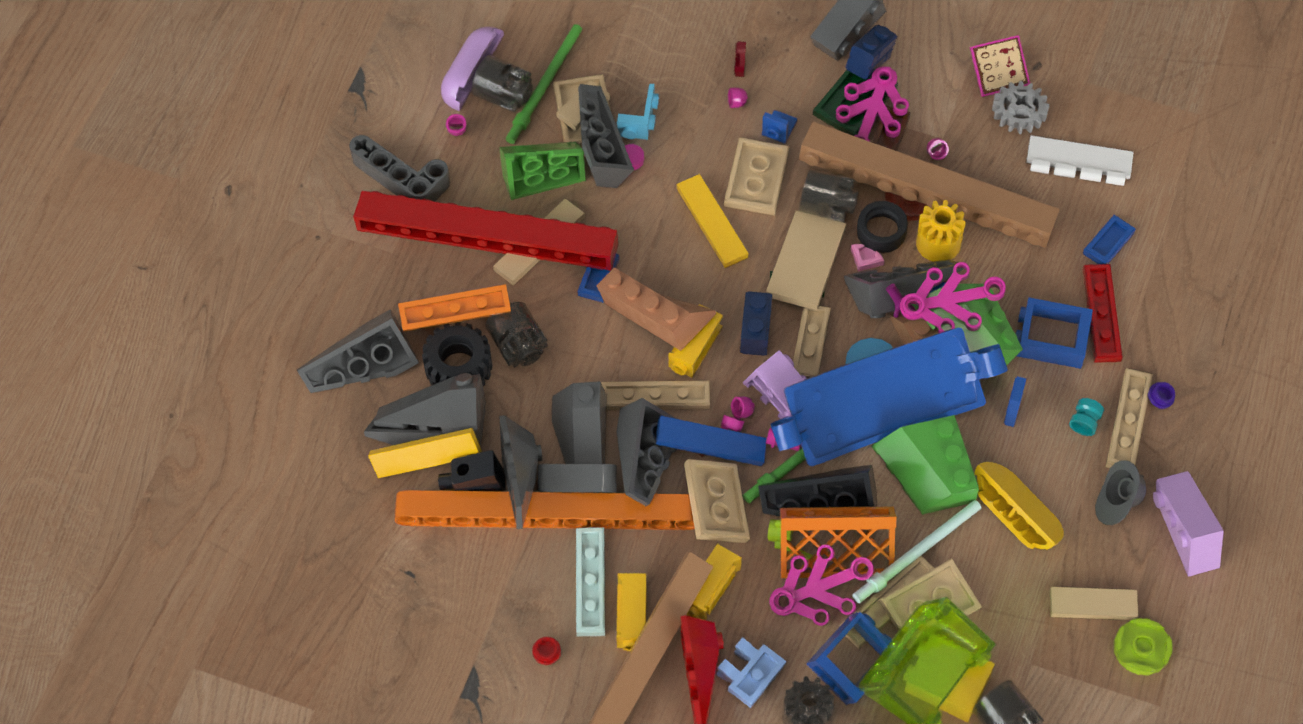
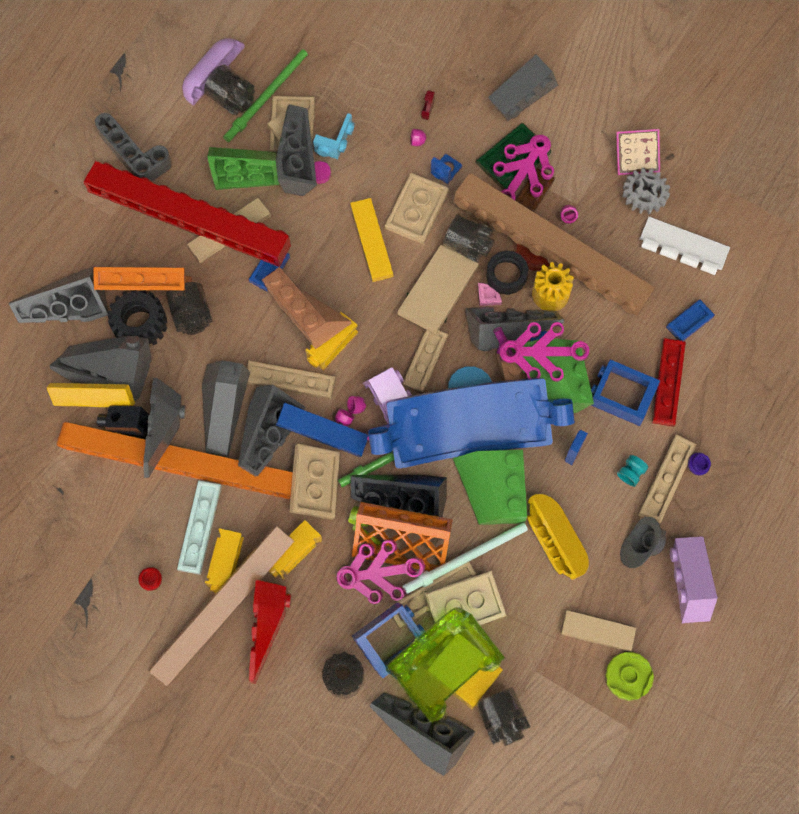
camera: 10 degrees right, 10 degrees up
(456, 120) = (188, 114): dark pink hinge -> none
(577, 478) = (207, 440): dark grey beam -> none
(756, 323) = (384, 336): dark blue brick -> none
(756, 675) = (311, 635): light blue plate -> none
(871, 51) = (534, 120): dark blue brick -> none

